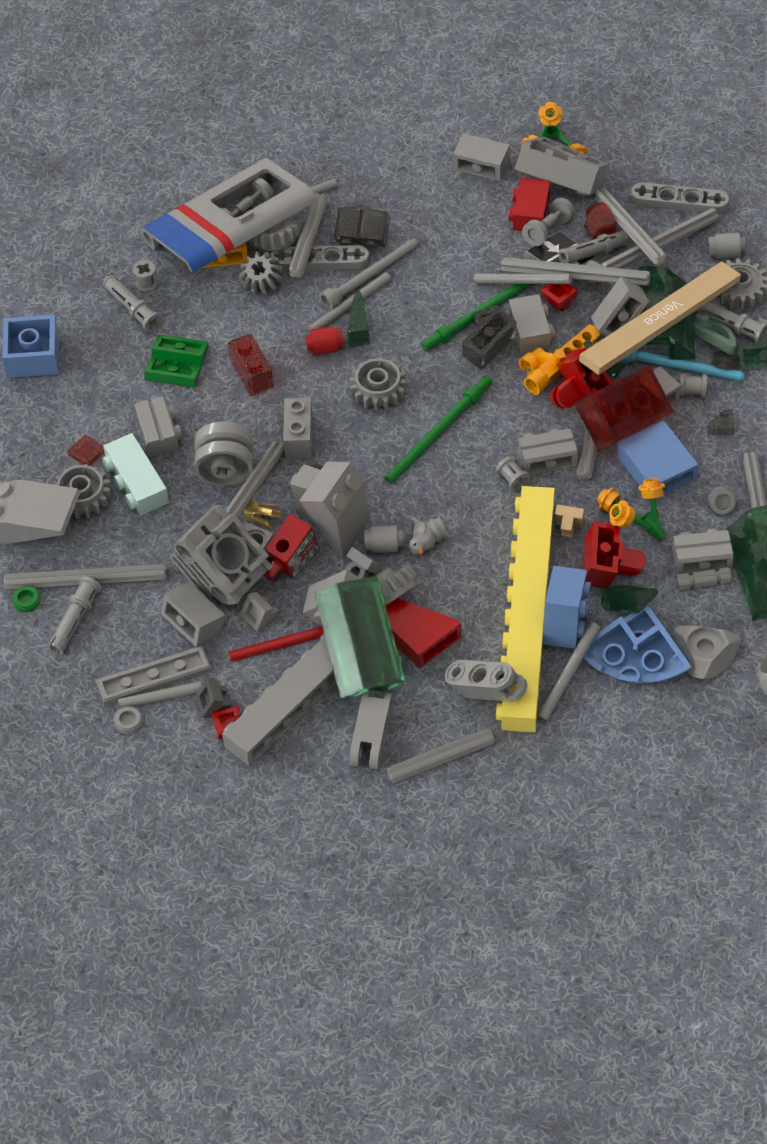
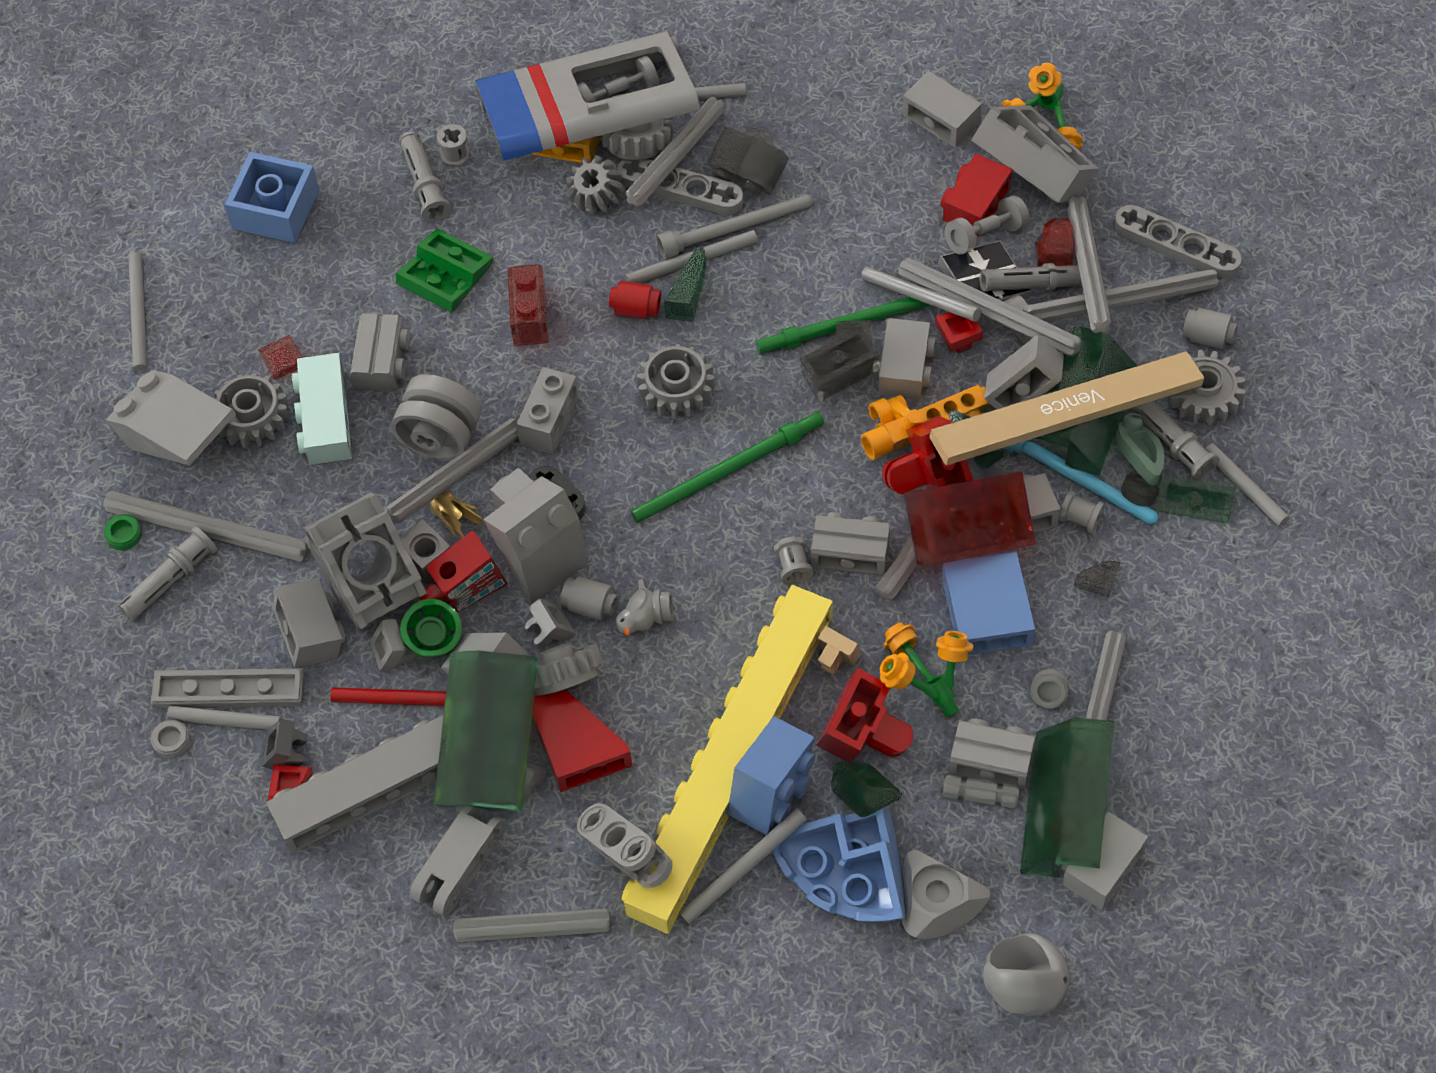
camera: 20 degrees right, 5 degrees up
(282, 594) = (430, 630): none -> green helmet

